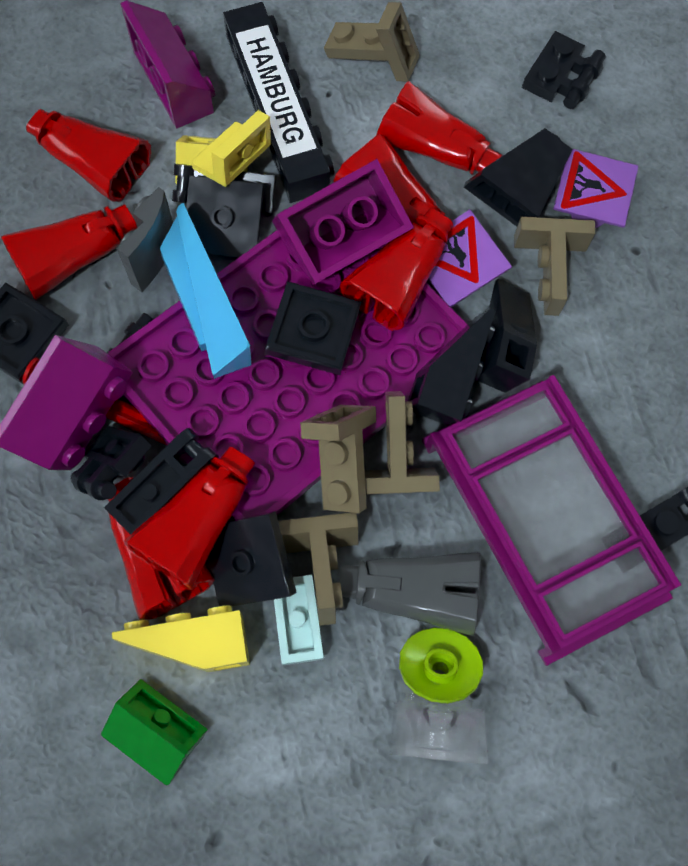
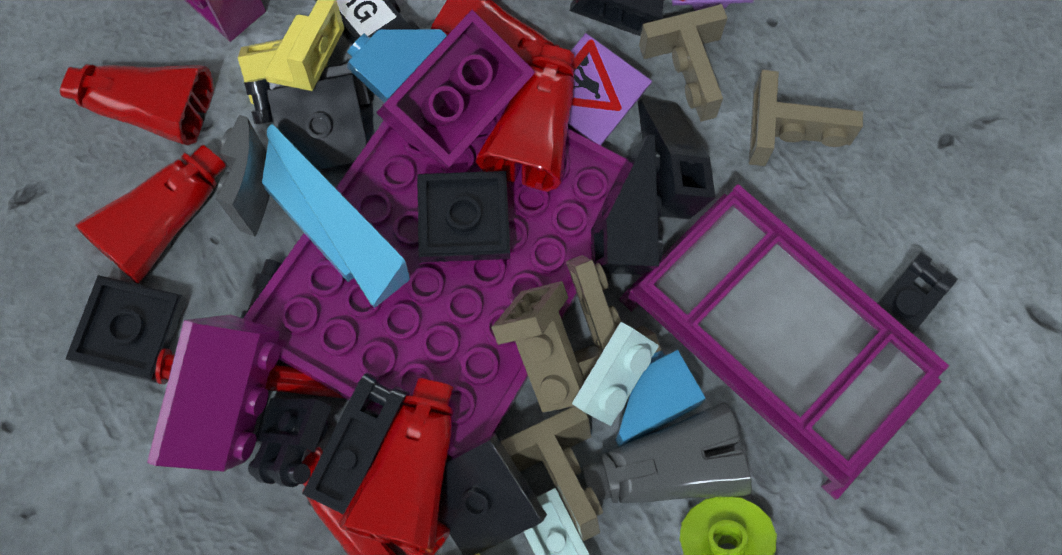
camera: 15 degrees left, 0 degrees up
(298, 177) = (391, 57): none -> dark azure slope
(392, 497) = (615, 374): none -> light aqua plate
(424, 529) = (659, 397): none -> dark azure slope
(625, 340) = (795, 121): none -> dark tan bracket

